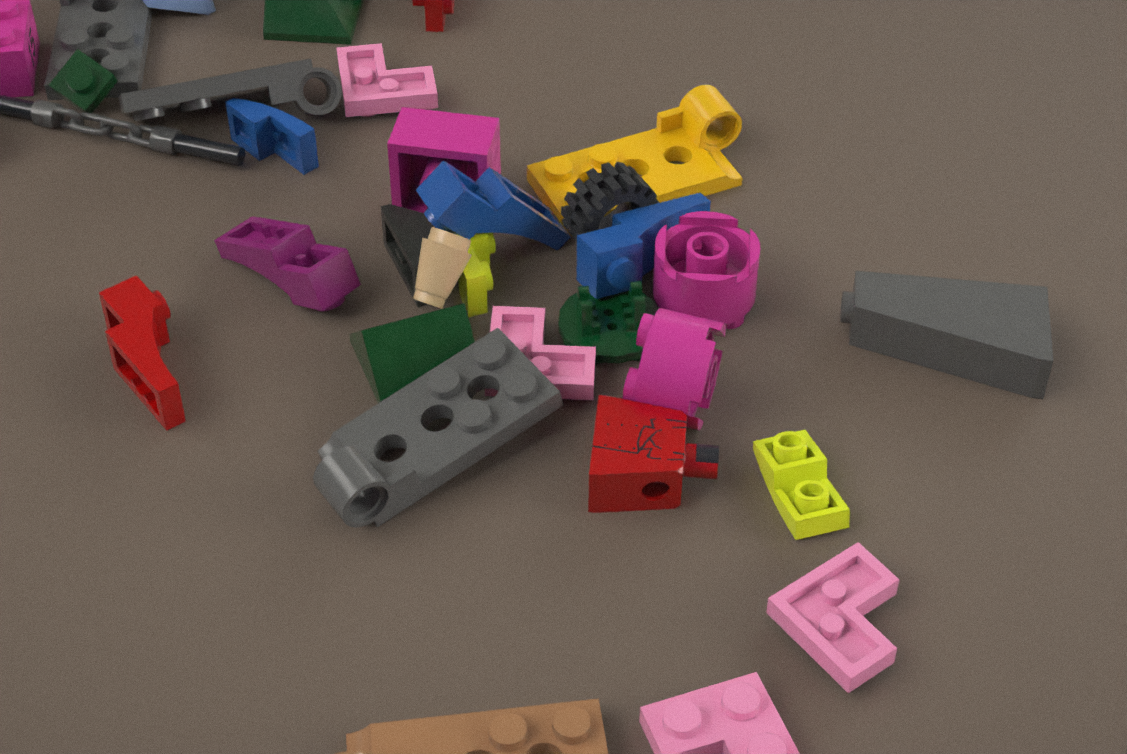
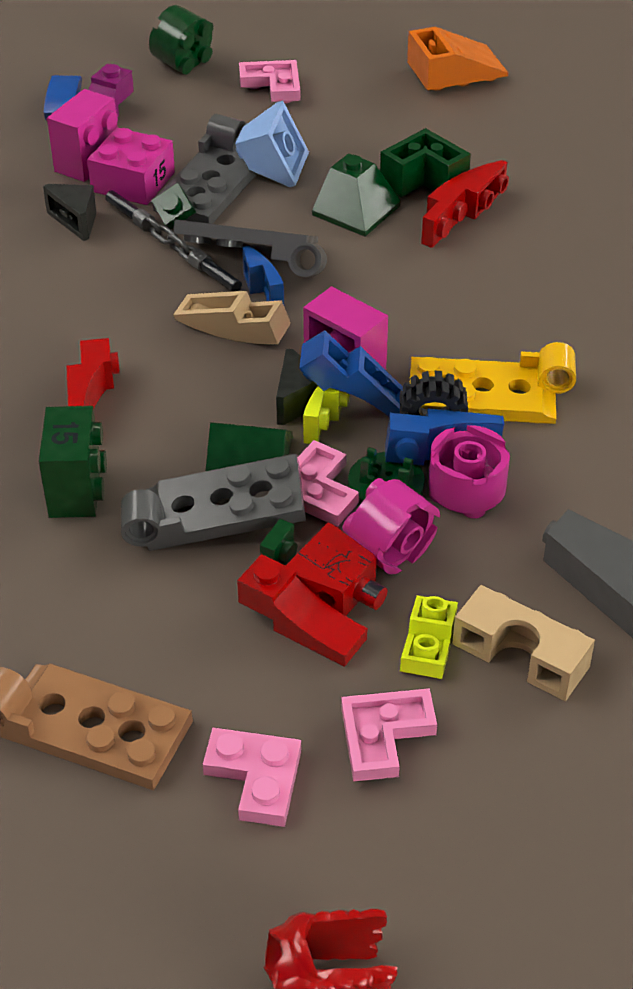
camera: 30 degrees right, 0 degrees up
(212, 450) = (72, 461): none -> dark green brick
(269, 191) = (234, 317): none -> tan slope
(290, 258) = (213, 365): magenta slope -> none
(374, 90) = (353, 270): bright pink plate -> none
(440, 266) = (290, 399): tan cone -> none
(553, 454) = (280, 543): none -> dark green plate
(636, 522) = (299, 612): none -> red slope
(956, 438) = (496, 622): none -> tan arch

